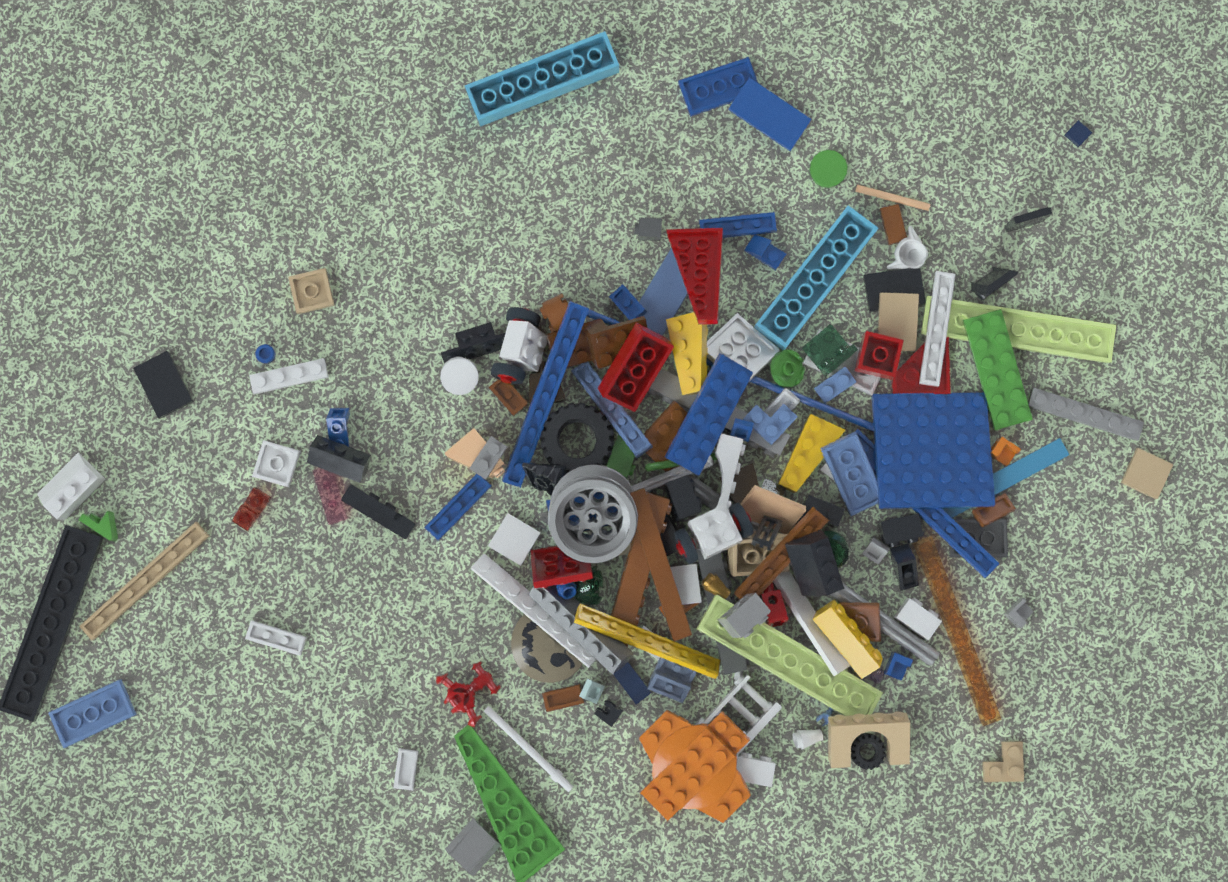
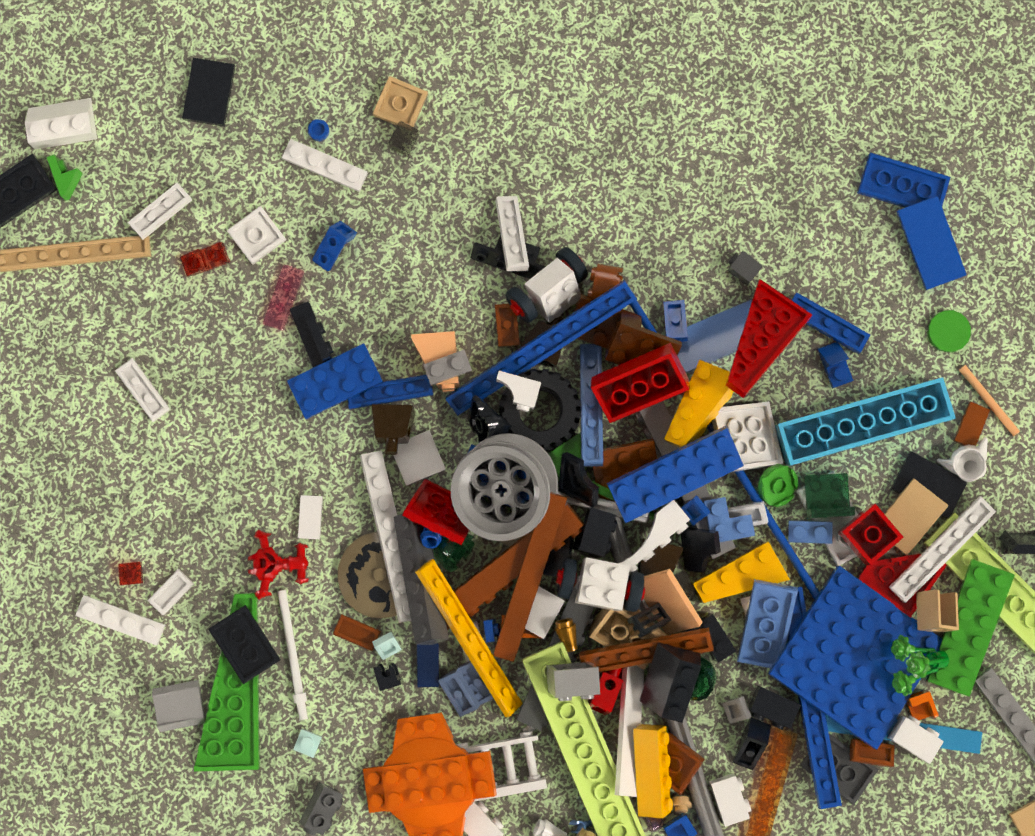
camera: 30 degrees right, 0 degrees up
(192, 498) = (160, 211): none -> white plate
(333, 314) = (404, 138): none -> clear smoke panel
(338, 458) = (314, 271): black brick -> none
(366, 777) = (130, 573): none -> clear red plate
(384, 817) = (120, 620): none -> white plate
(413, 528) = (335, 381): none -> blue plate
(459, 375) = (476, 275): white tile -> none
(463, 326) = (512, 233): none -> white plate
(467, 639) = (310, 517): none -> white tile
(478, 528) = (392, 425): none -> dark brown torso
(488, 767) = (244, 644): none -> black tile
(542, 78) = (748, 62): medium azure brick -> none
(554, 433) = (523, 390): none -> white arch
(586, 804) = (307, 743): none -> light aqua plate
(631, 844) = (320, 809): none -> dark grey brick
(641, 472) = (575, 482): none -> black tile
(659, 623) = (492, 630): none -> blue plate
(763, 455) = (698, 547): none -> black tile
(886, 647) = (681, 804): none -> tan plate
(966, 375) = (937, 611): none -> tan piece
(978, 422) = (917, 663): none -> bright green plant
(1017, 477) = (915, 738): none -> white brick

